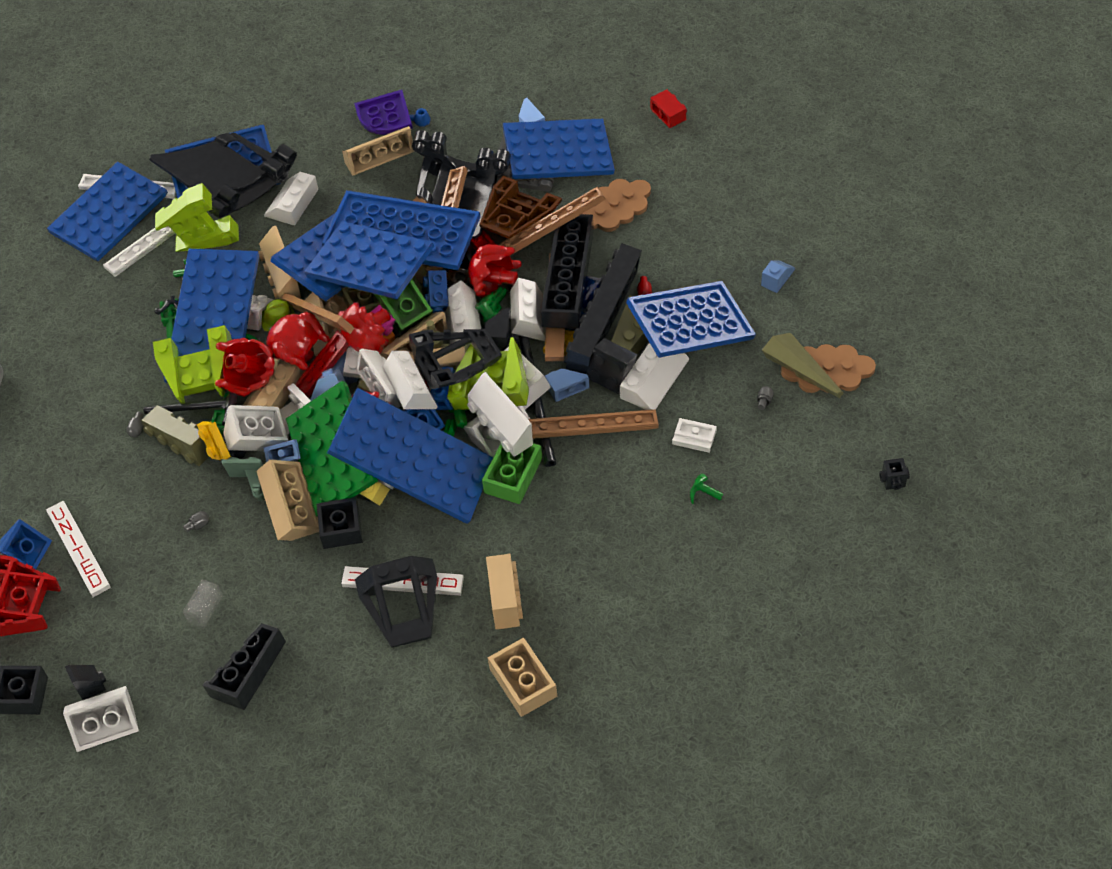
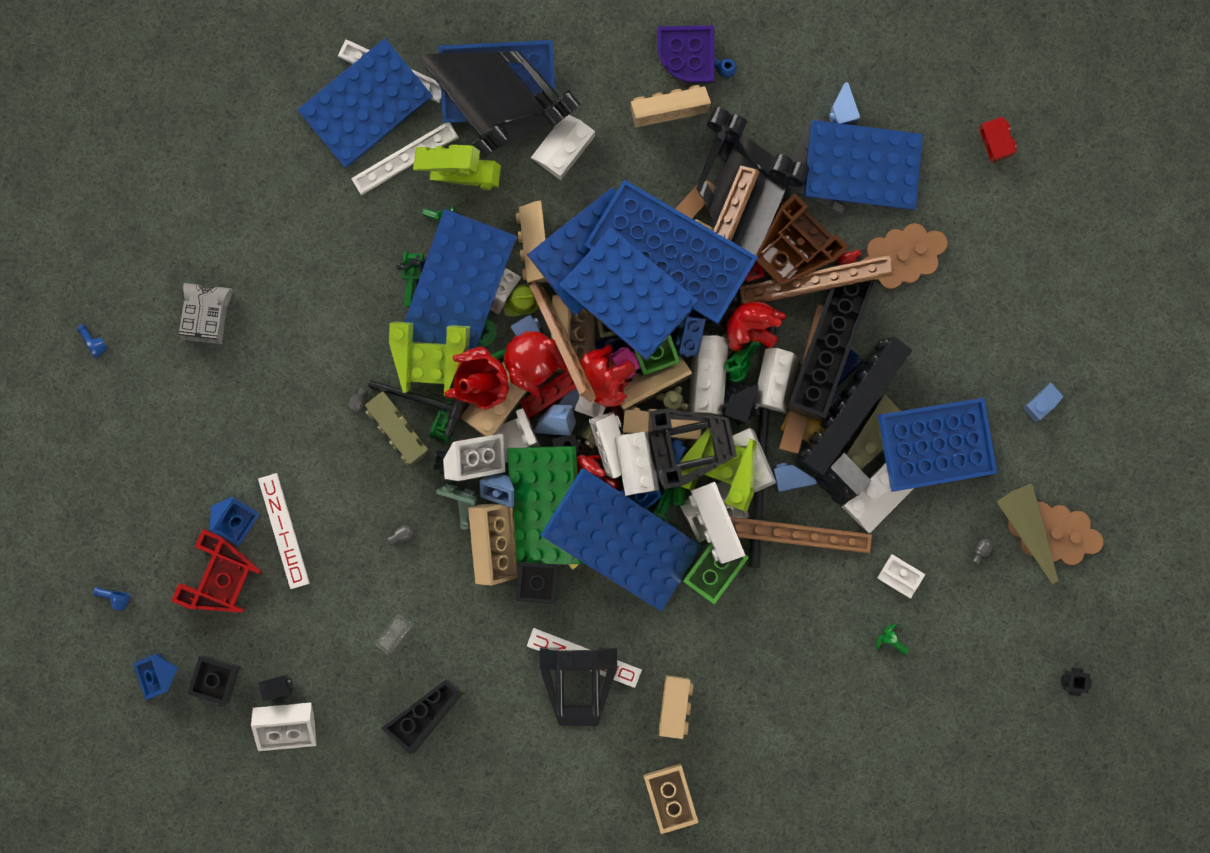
camera: 10 degrees right, 30 degrees up
(213, 440) = (432, 466): yellow plate -> none
(644, 287) = (902, 379): red cylinder -> none

